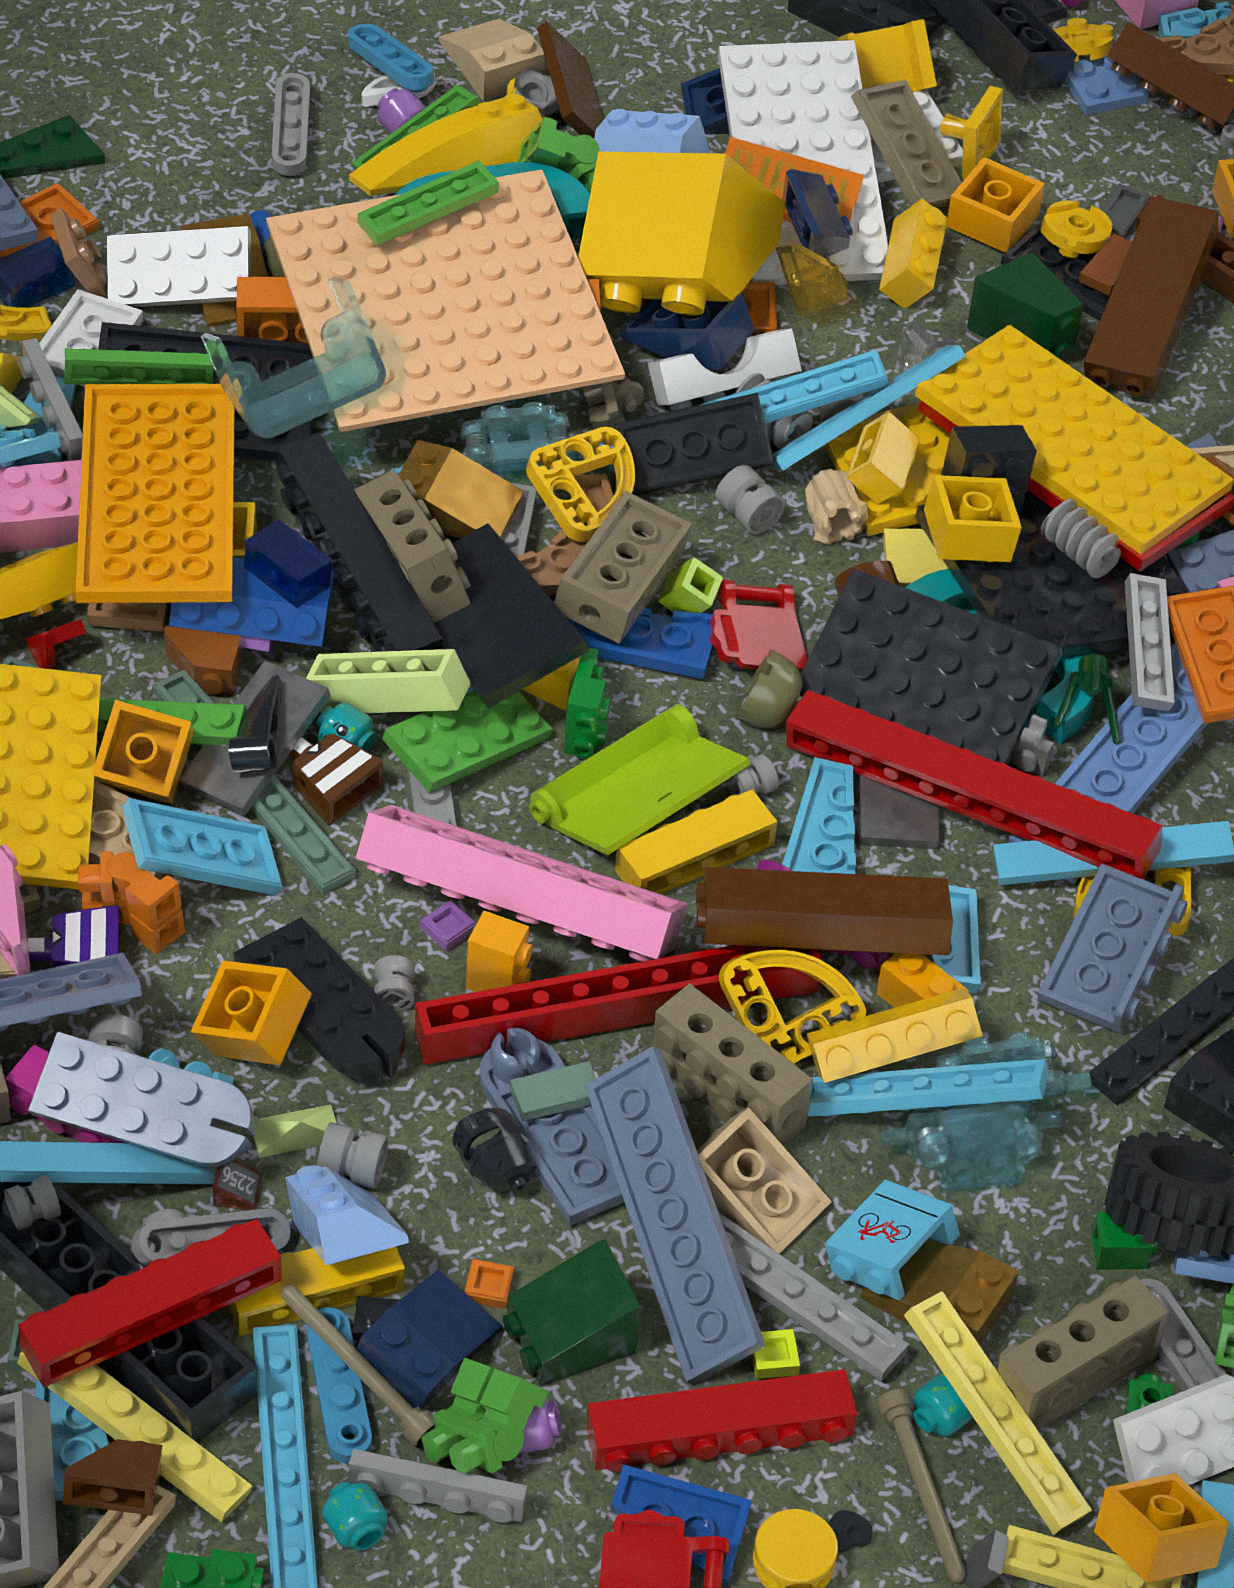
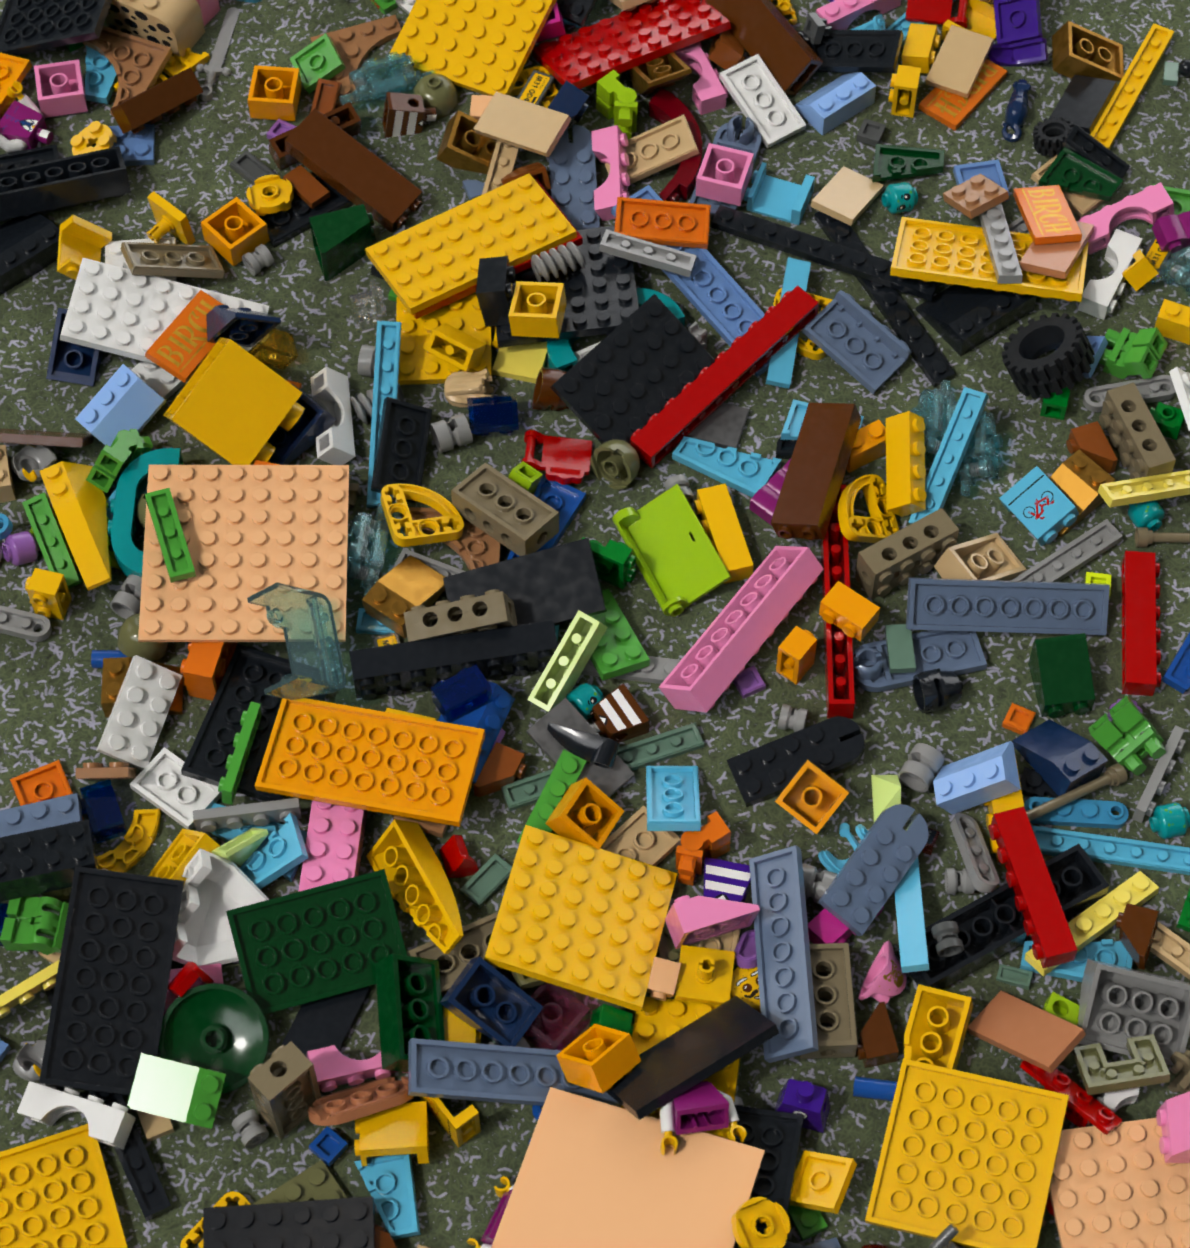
camera: 70 degrees left, 10 degrees up
(332, 145) = (48, 593): none -> yellow brick
(578, 990) = (849, 611): none -> light orange brick
(798, 535) = (492, 414): none -> clear blue brick
(866, 406) = (410, 356): medium azure tile -> none
(913, 253) = (264, 287): yellow brick -> none
(964, 243) = (257, 260): none -> light grey wheel
(1048, 1297) = (1094, 444): none -> dark orange slope
(1092, 679) = (664, 290): dark green plant -> none

